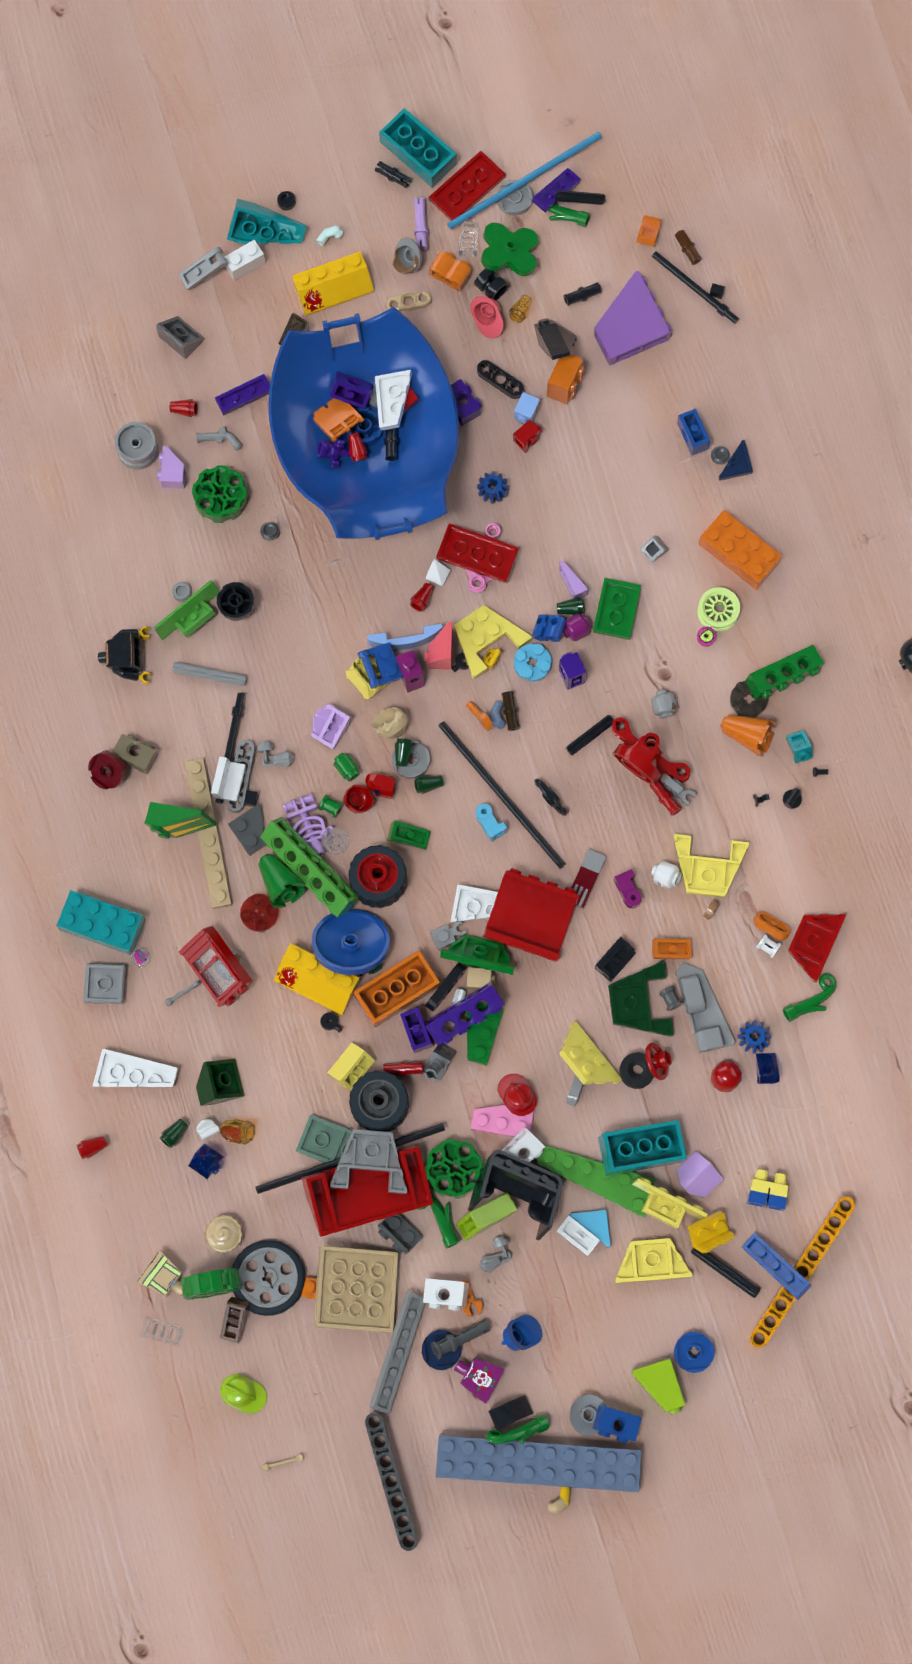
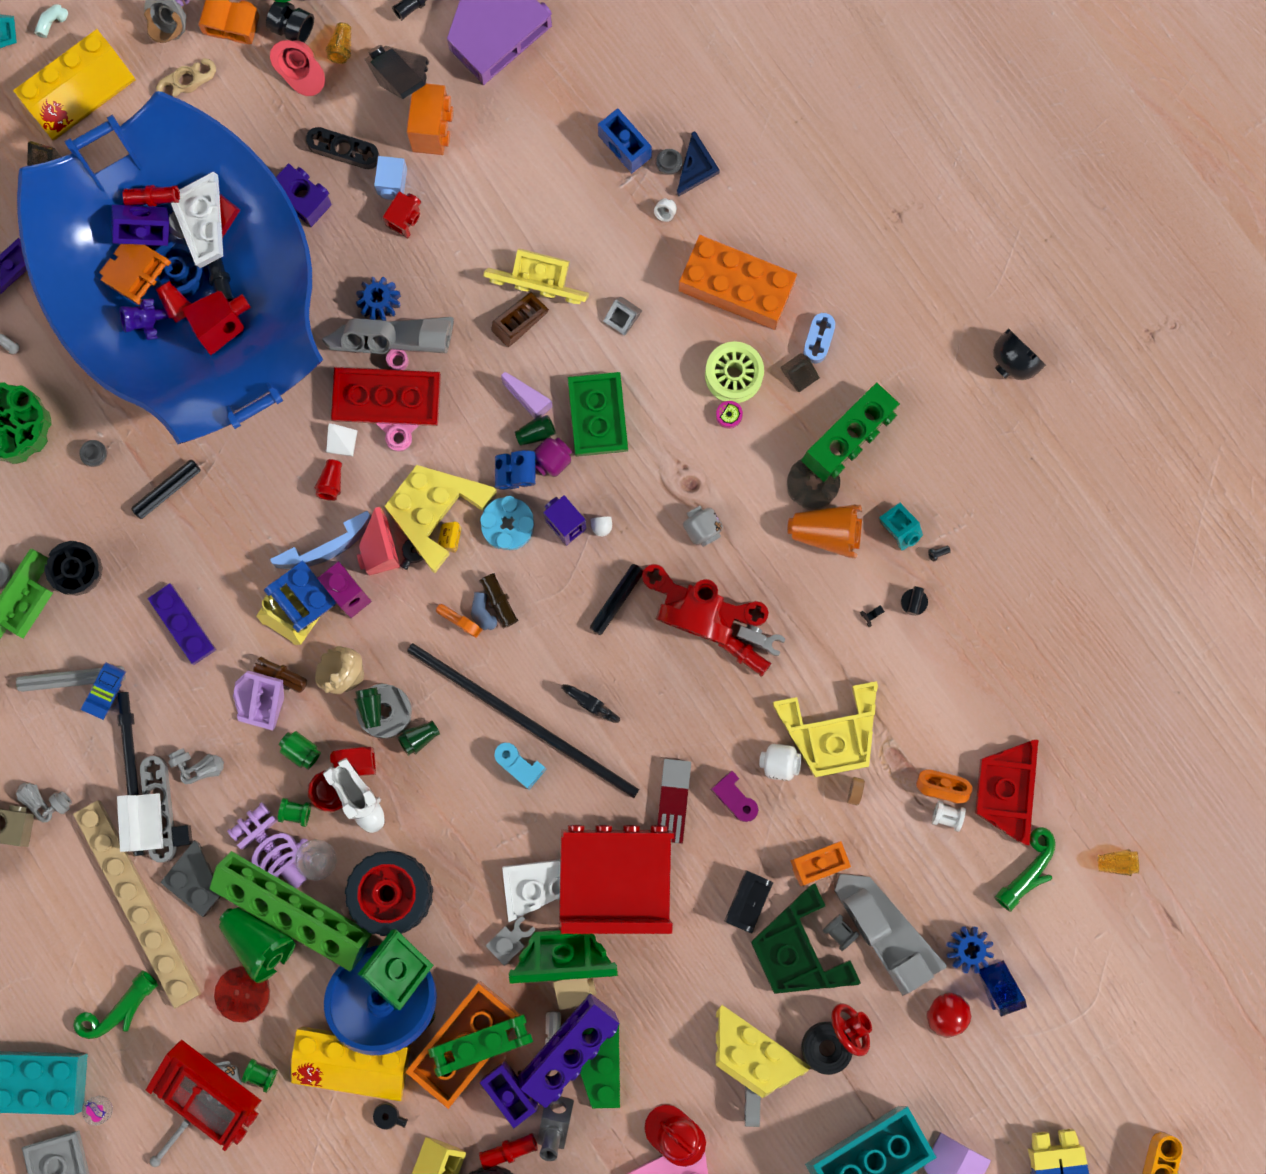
camera: 20 degrees left, 5 degrees up
(159, 742) = (29, 796): none -> light grey piece
(176, 820) = (78, 909): green slope -> none
(178, 898) = (125, 1009): none -> green plant
(230, 687) = (104, 691): none -> blue leg
(255, 968) = (259, 1075): none -> green bush
(293, 661) = (182, 624): none -> dark purple plate
(310, 569) = (165, 489): none -> black axle
(355, 719) = (273, 670): none -> reddish brown axle
(364, 373) = (151, 195): none -> red pin
(368, 923) = (395, 969): none -> green tile
(376, 806) = (356, 797): none -> white animal
(382, 467) = (216, 319): none -> red torso
(408, 835) = (414, 817): green slope -> none
(408, 989) = (480, 1045): none -> green plate
(446, 986) = (532, 1011): black beam -> none
(487, 512) = (380, 336): none -> light grey panel
(573, 535) = (514, 333): none -> reddish brown slope
(595, 683) = (601, 525): none -> white hinge
(607, 503) = (538, 273): none -> light yellow bracket
(703, 486) = (659, 210): none -> white hinge
(764, 623) = (800, 372): none -> clear smoke slope
(787, 606) = (825, 339): none -> light blue beam
(875, 1013) = (1120, 862): none -> clear yellow cone

